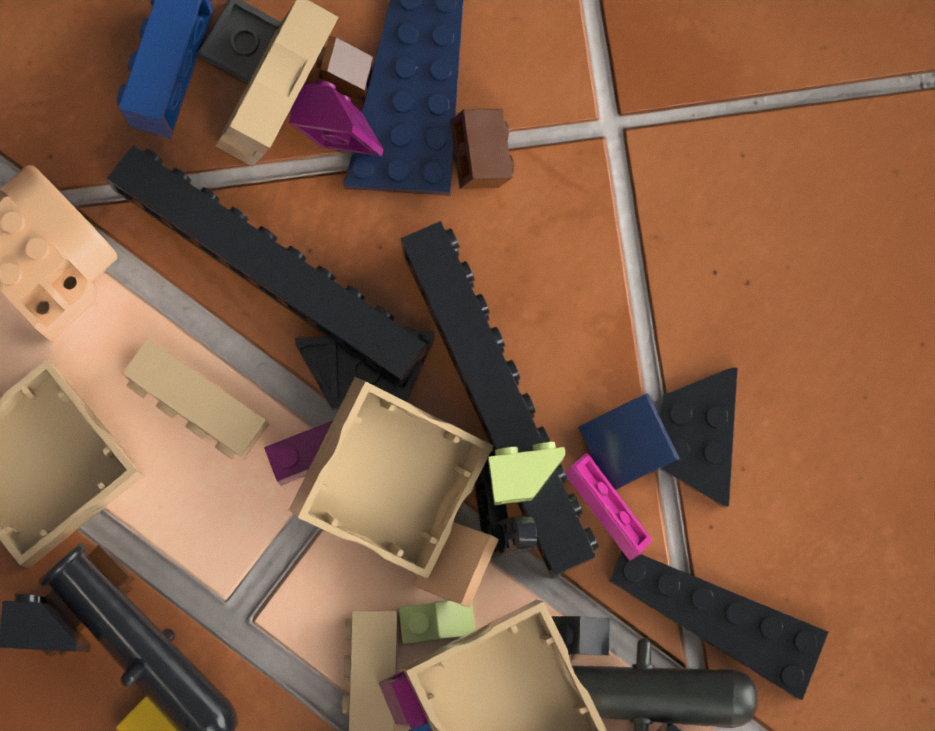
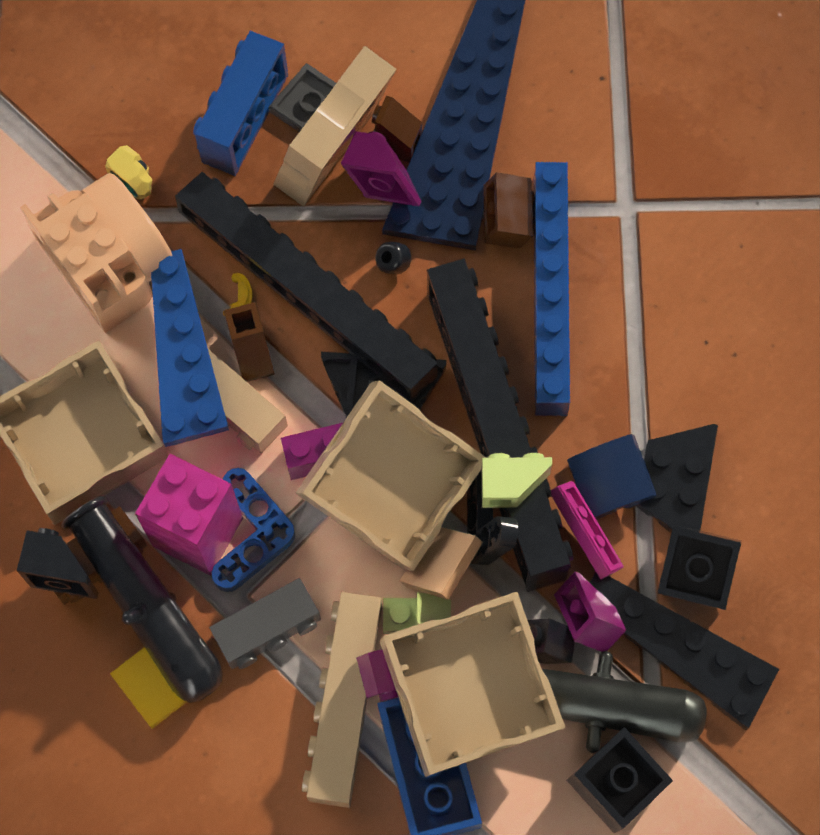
camera: 10 degrees right, 10 degrees down
(52, 151) = (131, 171): none -> light yellow rock
(148, 384) = (186, 377): none -> blue wing
(177, 551) = (190, 514): none -> dark pink brick
(200, 281) = (244, 291): none -> yellow piece
(214, 338) = (249, 342): none -> reddish brown slope
(258, 541) = (264, 527): none -> blue beam
(276, 654) = (266, 624): none -> dark grey brick
(360, 219) = (393, 257): none -> black piece
(539, 233) = (551, 290): none -> blue brick
(621, 600) = (589, 614): none -> magenta slope
(734, 534) = (699, 567): none -> black brick

